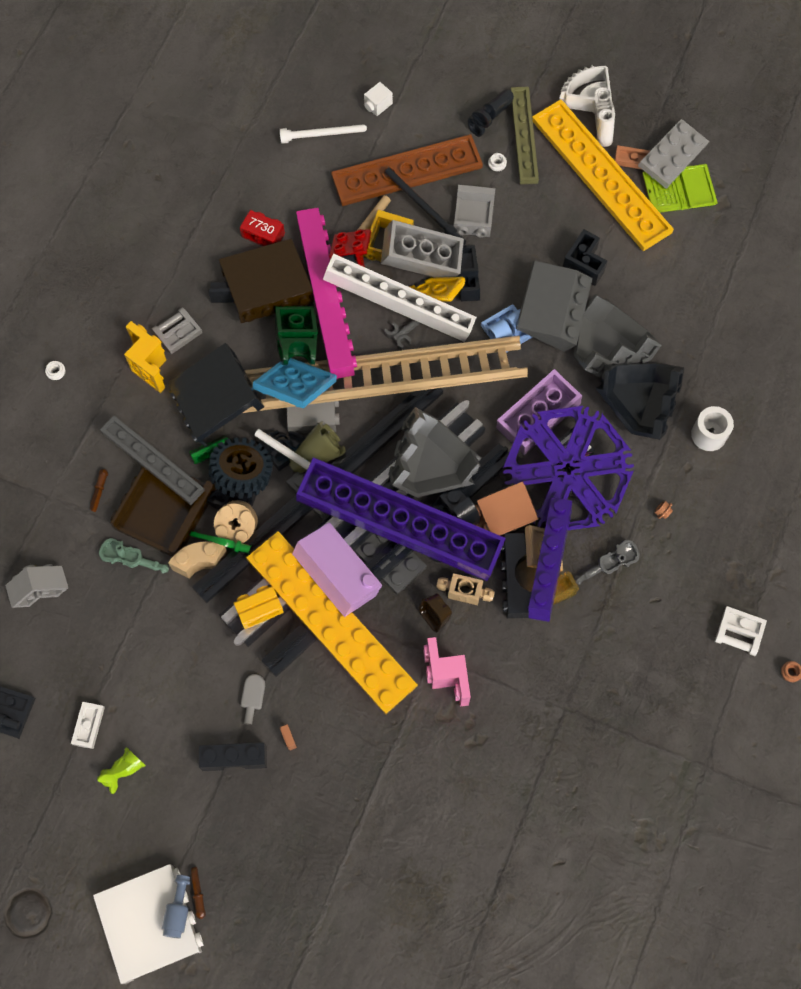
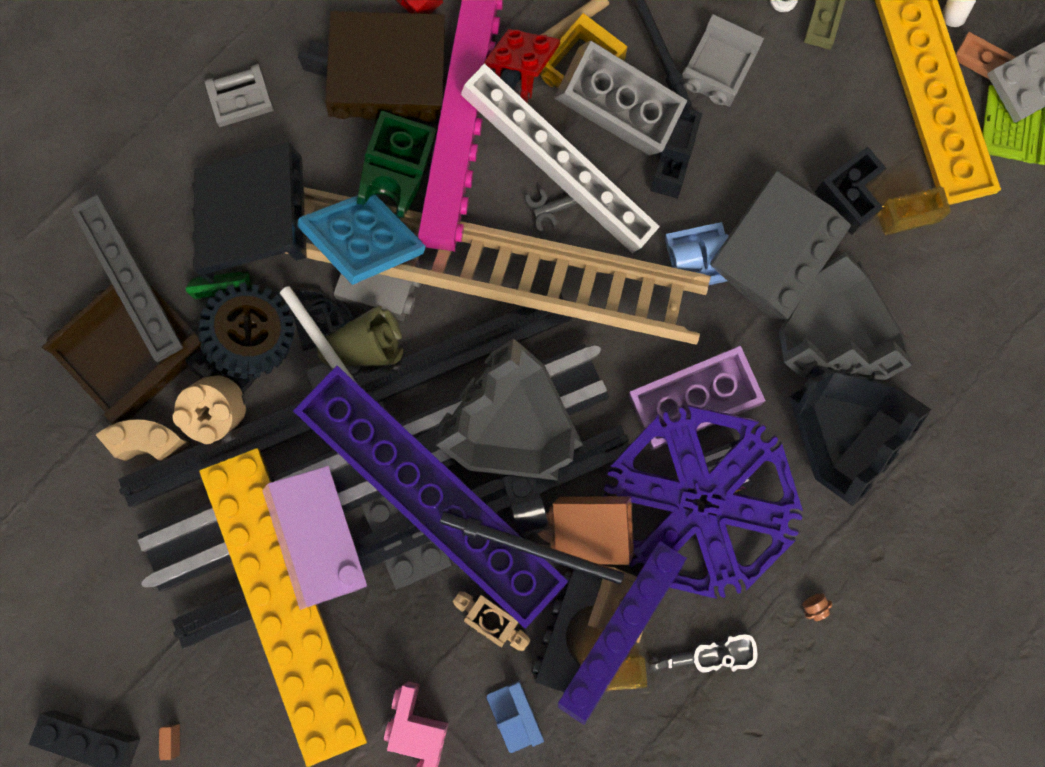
camera: 20 degrees right, 10 degrees up
(54, 365) = (49, 90): white plate -> none
(103, 473) = (52, 285): reddish brown piece -> none
(114, 551) = (38, 386): sand green piece -> none
(145, 356) = (178, 120): yellow bracket -> none
(238, 546) = (179, 435): green animal -> none
(252, 696) = (146, 662): light grey piece -> none
(258, 606) = (188, 549): yellow brick -> none
(435, 524) = (472, 528): none -> black bar
(435, 612) = (435, 640): dark brown piece -> none
(441, 288) = (624, 163): yellow tile -> none
(504, 642) = (515, 717): none -> medium blue panel
(626, 258) = (914, 210): none -> clear yellow brick
(714, 420) = (950, 517): white piece -> none

